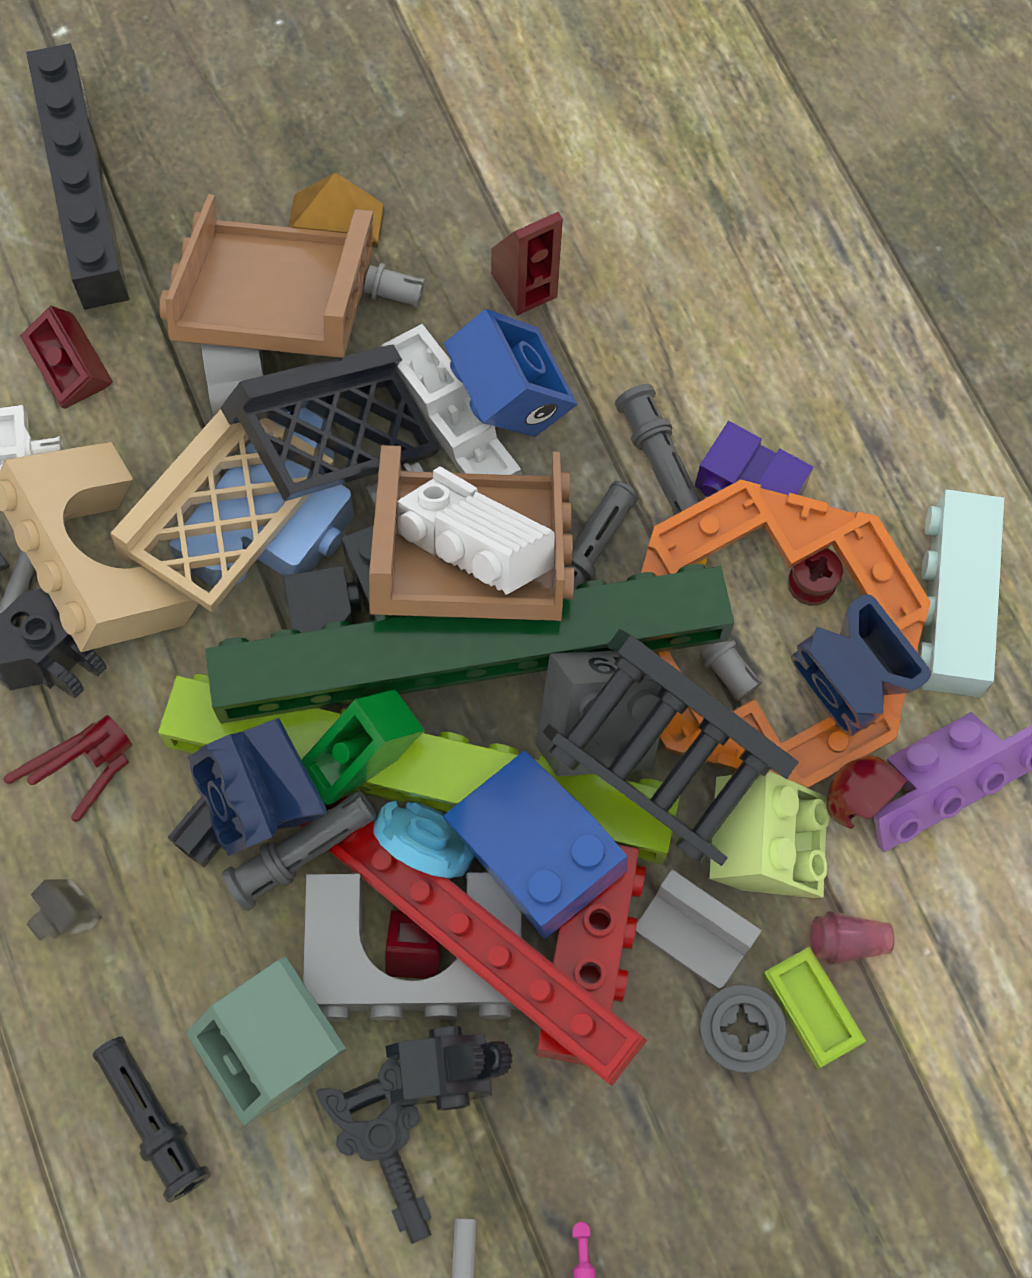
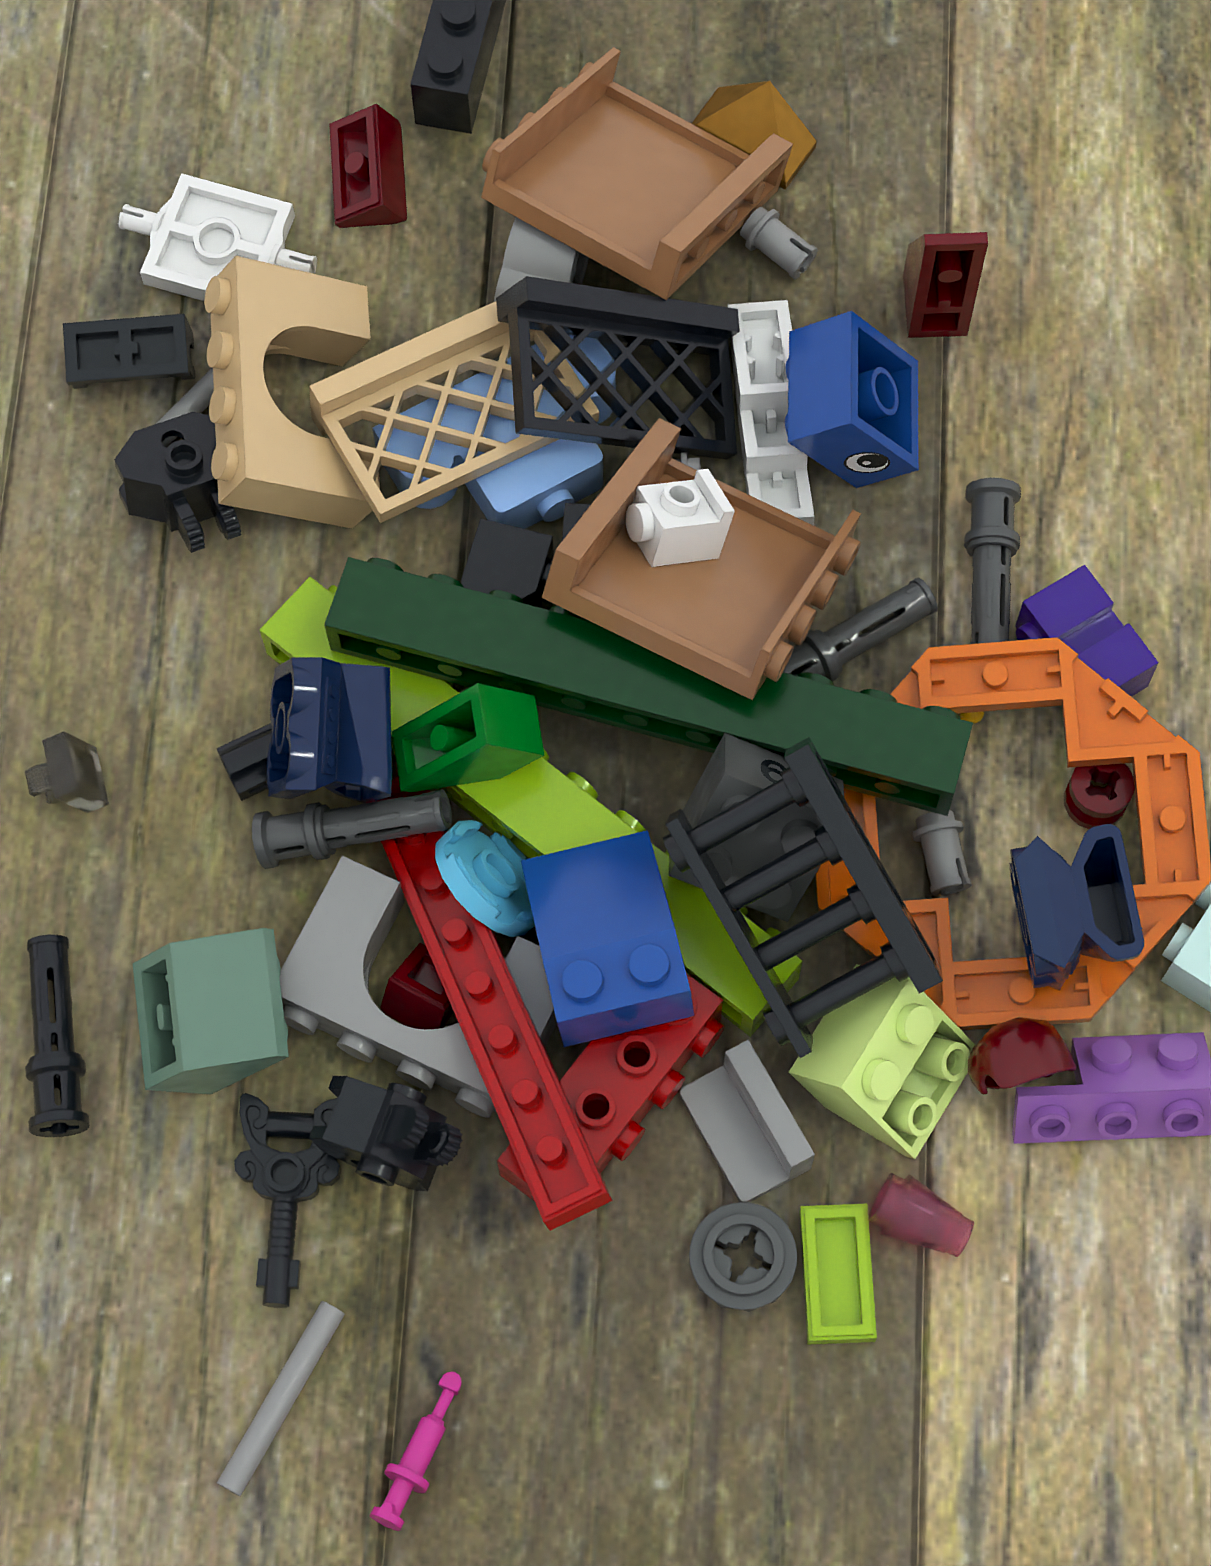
camera: 30 degrees right, 0 degrees up
(98, 742) = (195, 616): dark red plant -> none
(493, 542) = (718, 579): white brick -> none

